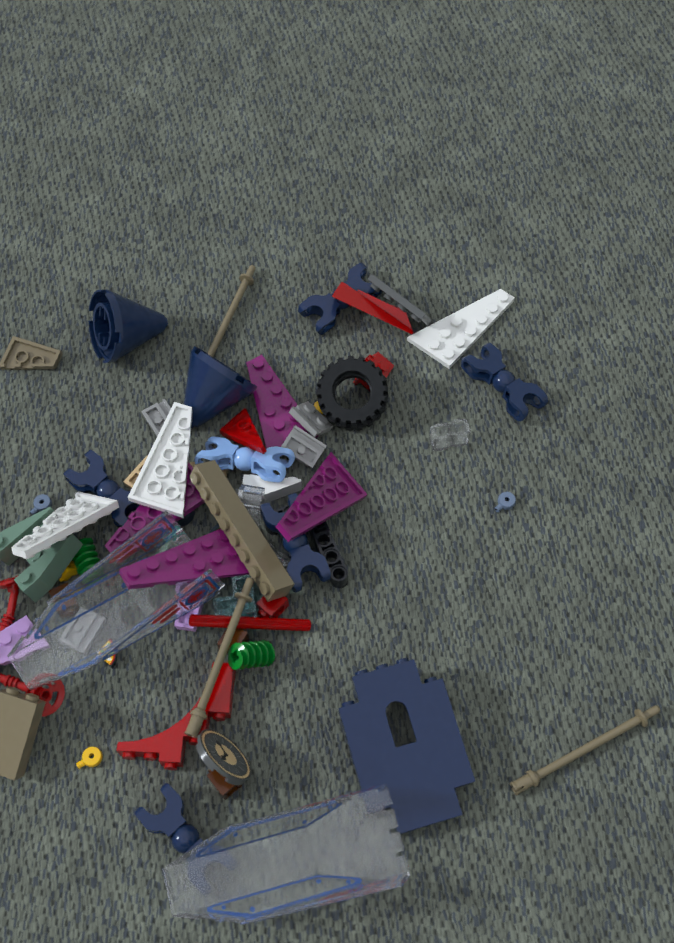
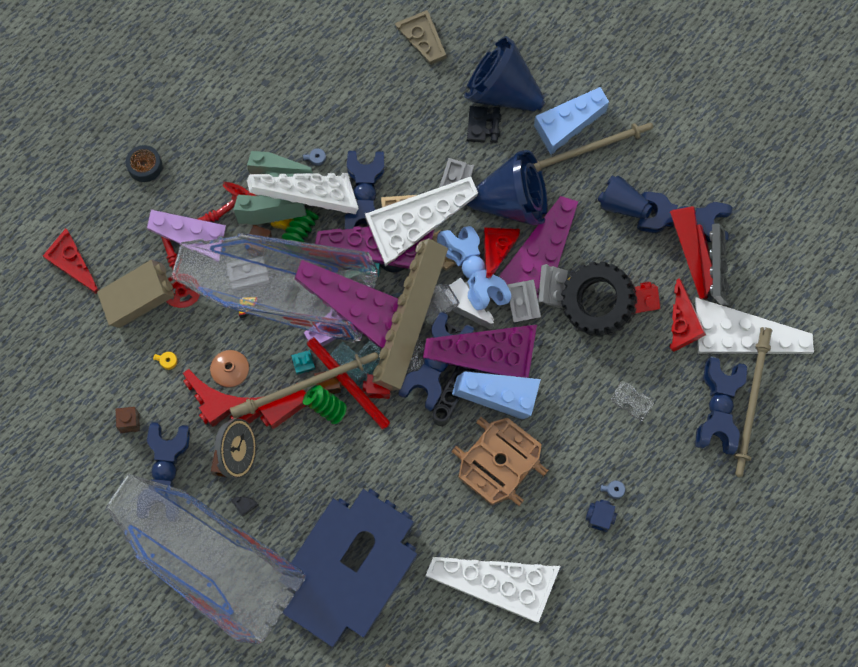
camera: 45 degrees right, 10 degrees up
(111, 833) = (127, 419): none -> reddish brown brick
(134, 374) = (477, 124): none -> black plate
(153, 718) = (233, 376): none -> nougat dish
(193, 315) = (569, 118): none -> light blue wedge
(197, 647) = (303, 362): none -> teal tile
(274, 793) = (244, 504): none -> black tile
(292, 321) = (624, 199): none -> dark blue cone
(360, 518) = (502, 393): none -> light blue wedge
(420, 356) = (686, 323): none -> red wing
(422, 542) = (509, 473): none -> medium nougat piece
(484, 322) = (762, 347): none -> dark tan bar
(518, 637) = (508, 585): none -> white wing
(519, 525) = (601, 515): none -> dark blue brick

